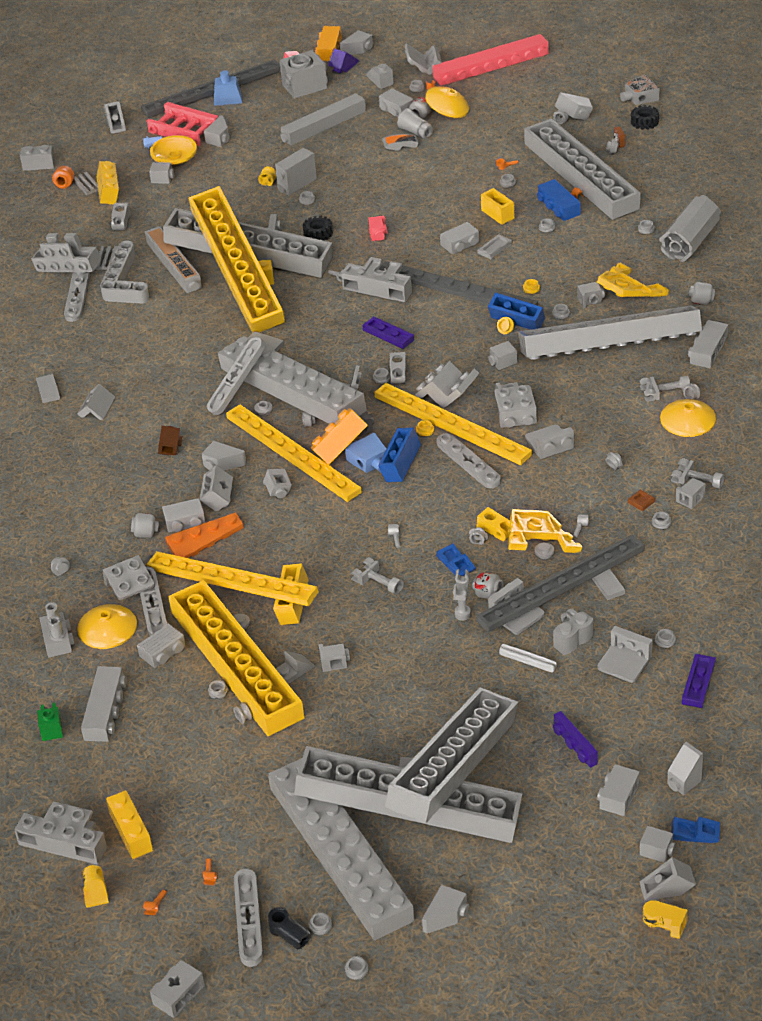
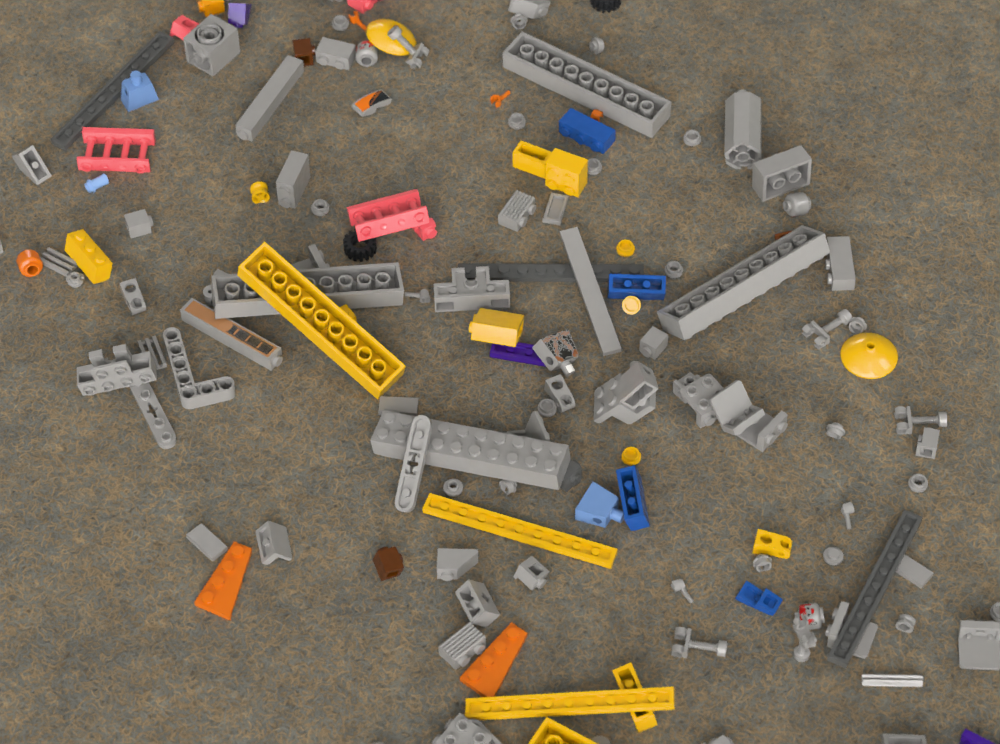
camera: 30 degrees left, 10 degrees up
(36, 420) = (224, 585): none -> orange wing
(89, 196) = (75, 282): none -> light grey plate
(144, 525) = (430, 672): light grey head -> none
(173, 149) = (131, 184): yellow dish -> none
(217, 132) = (165, 150): light grey slope -> none
(338, 435) = (566, 500): light orange brick -> none
(351, 212) = (388, 215): none -> coral fence
(371, 95) = (302, 48): none -> reddish brown brick
(379, 308) = (496, 327): none -> yellow brick
(381, 75) = (294, 20): light grey slope -> none
(413, 123) = (375, 76): light grey plant -> none
(415, 337) = (557, 352): none -> light grey torso
(454, 123) = (417, 50): none -> light grey bar
(454, 424) = (654, 440): yellow plate -> none
(459, 365) = (637, 385): none -> light grey torso
(476, 306) = (590, 291): none -> light grey tile
(478, 468) = (707, 482): light grey piece -> none
(516, 220) = (566, 172): none -> yellow brick
(532, 414) = (735, 409): none -> light grey bracket
(538, 525) = (814, 531): yellow wing -> none
(573, 633) = (920, 638): light grey brick -> none
(589, 294) = (690, 240): light grey brick -> none
(619, 136) = (597, 30): dark orange tile -> none
(625, 286) = (720, 219): yellow wing -> none
(641, 500) = (885, 466): dark orange tile -> none
(701, 264) = (781, 173): none -> light grey brick

